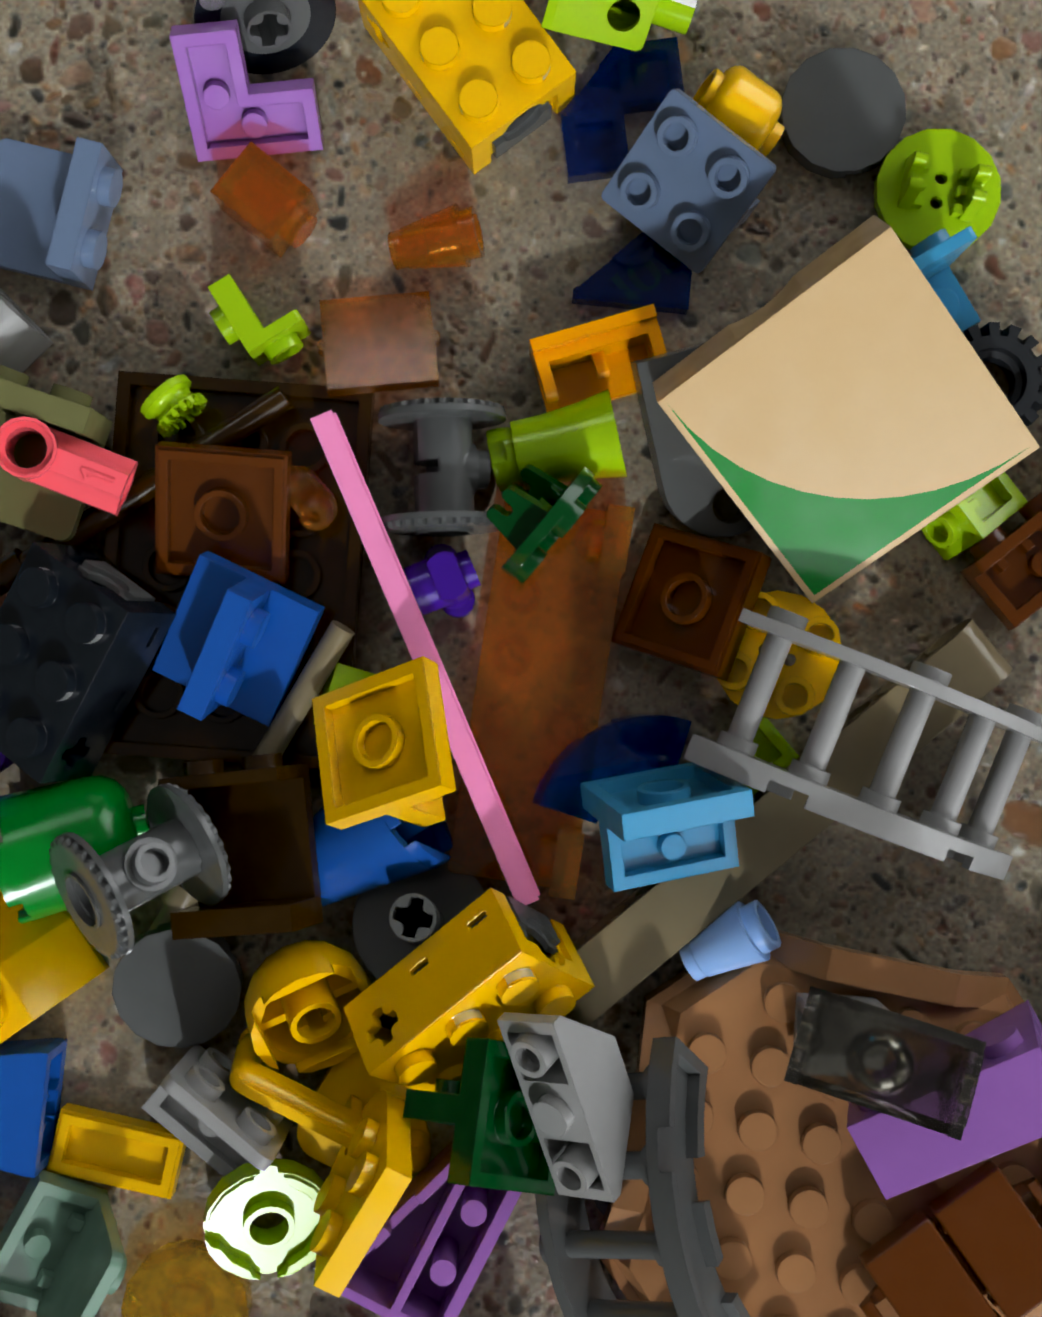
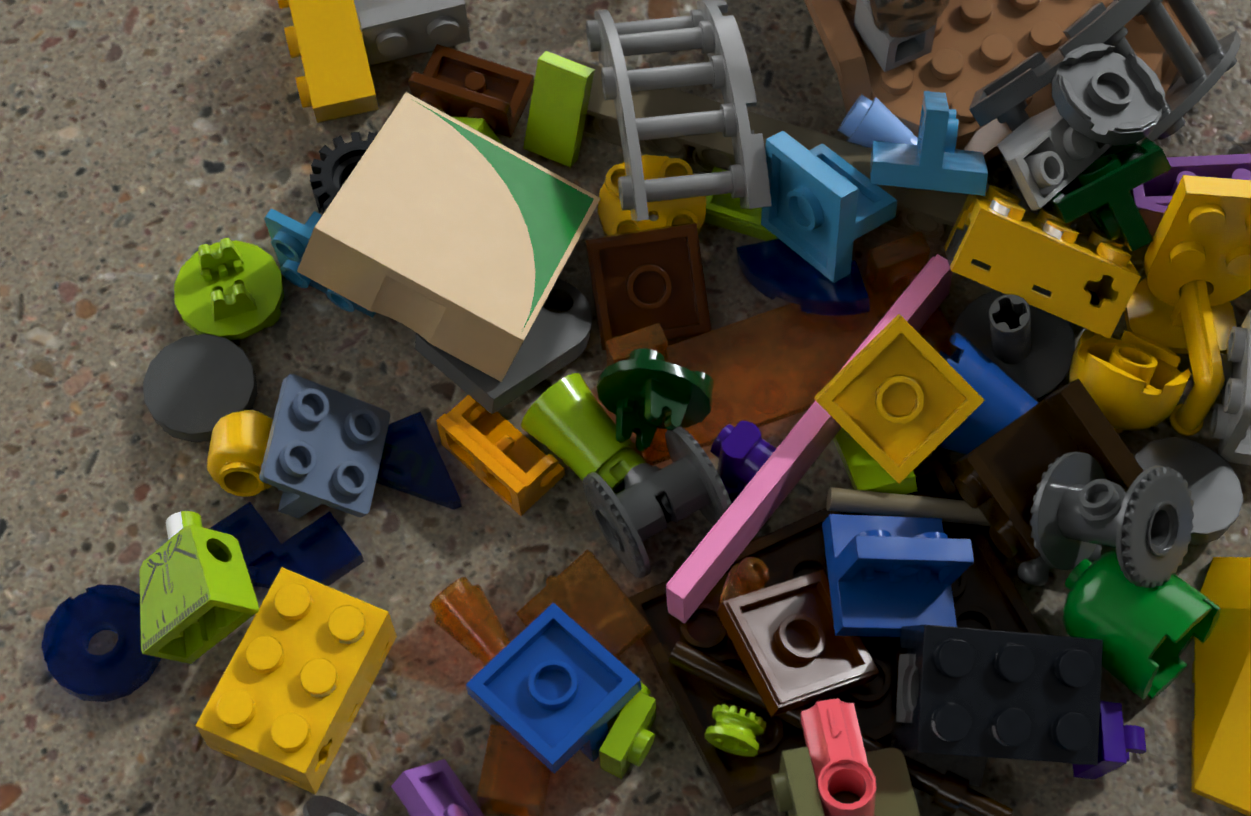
camera: 115 degrees left, 25 degrees down
(305, 258) = (555, 689): none -> blue bracket
(585, 1183) = (1108, 94): none -> dark grey tile
(638, 955) = (934, 160): none -> dark azure bracket
(952, 624) = (558, 108): none -> lime tile

